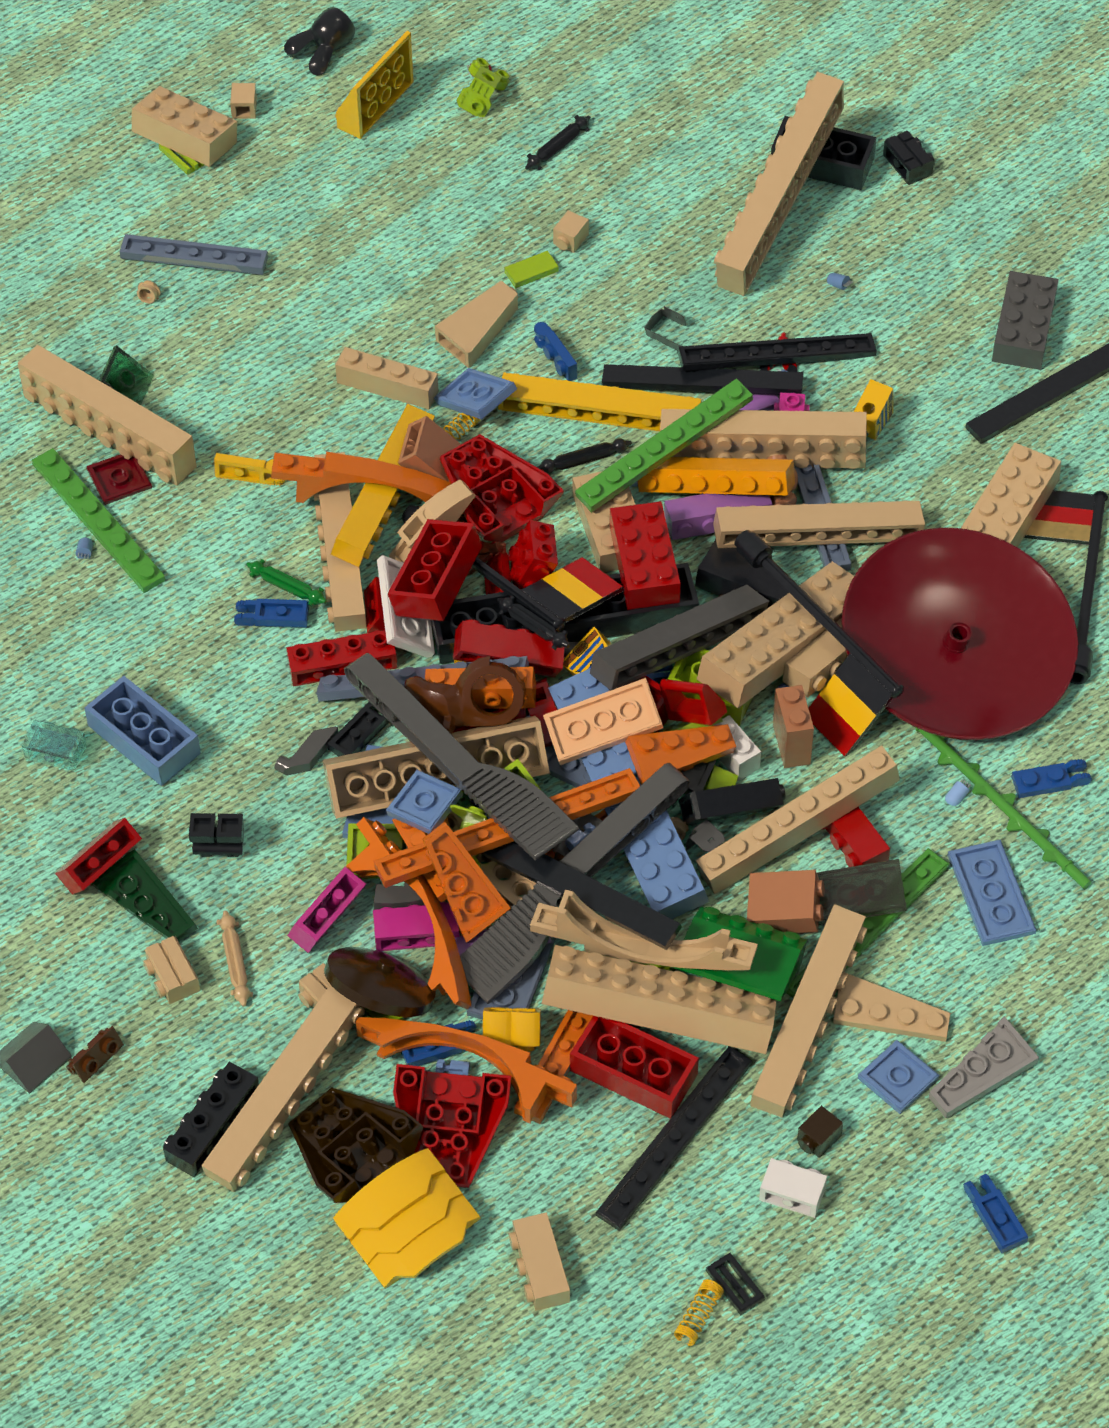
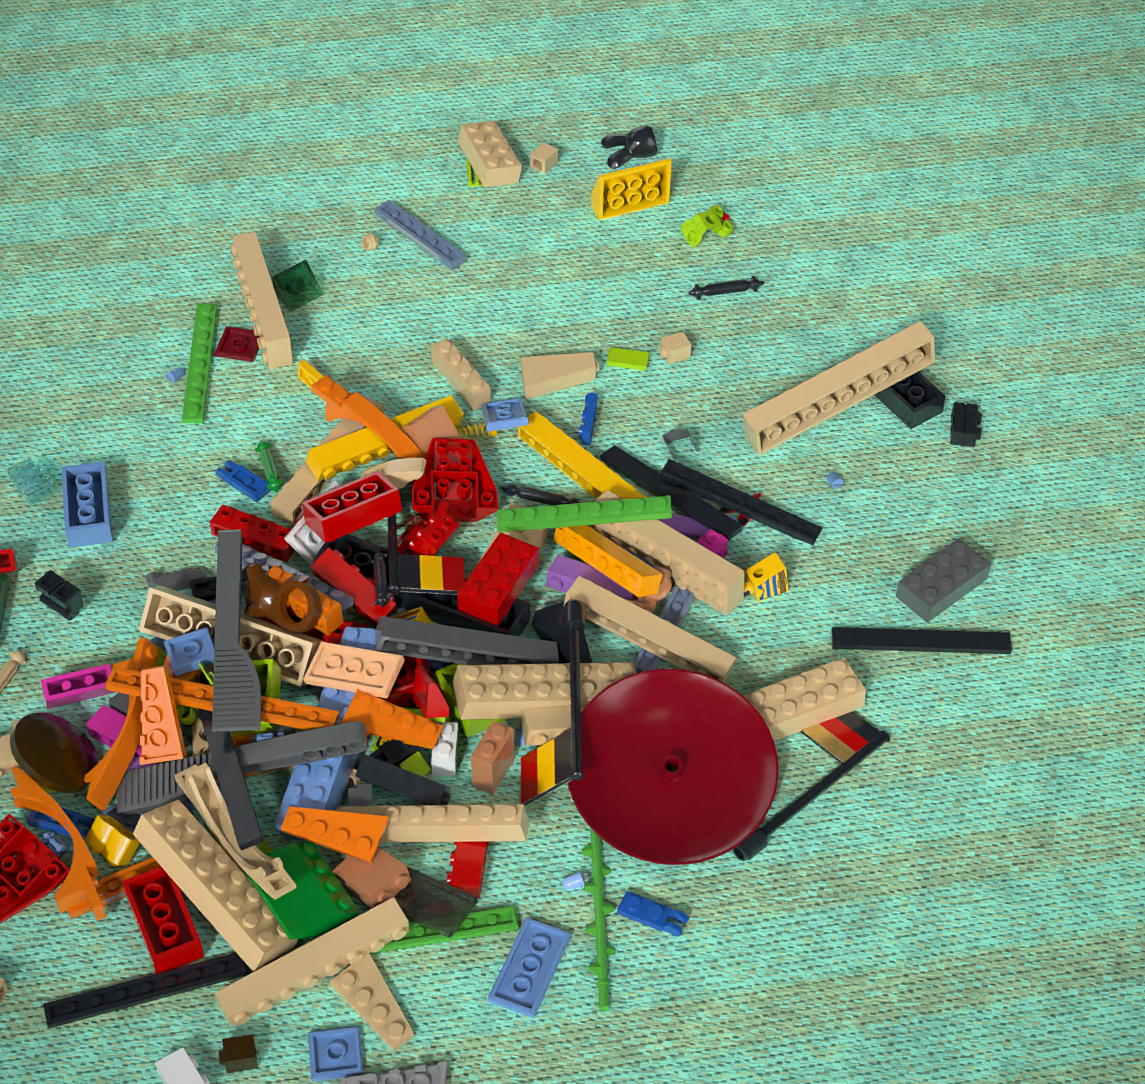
camera: 35 degrees right, 5 degrees down
(731, 877) = (340, 831): none -> orange wing

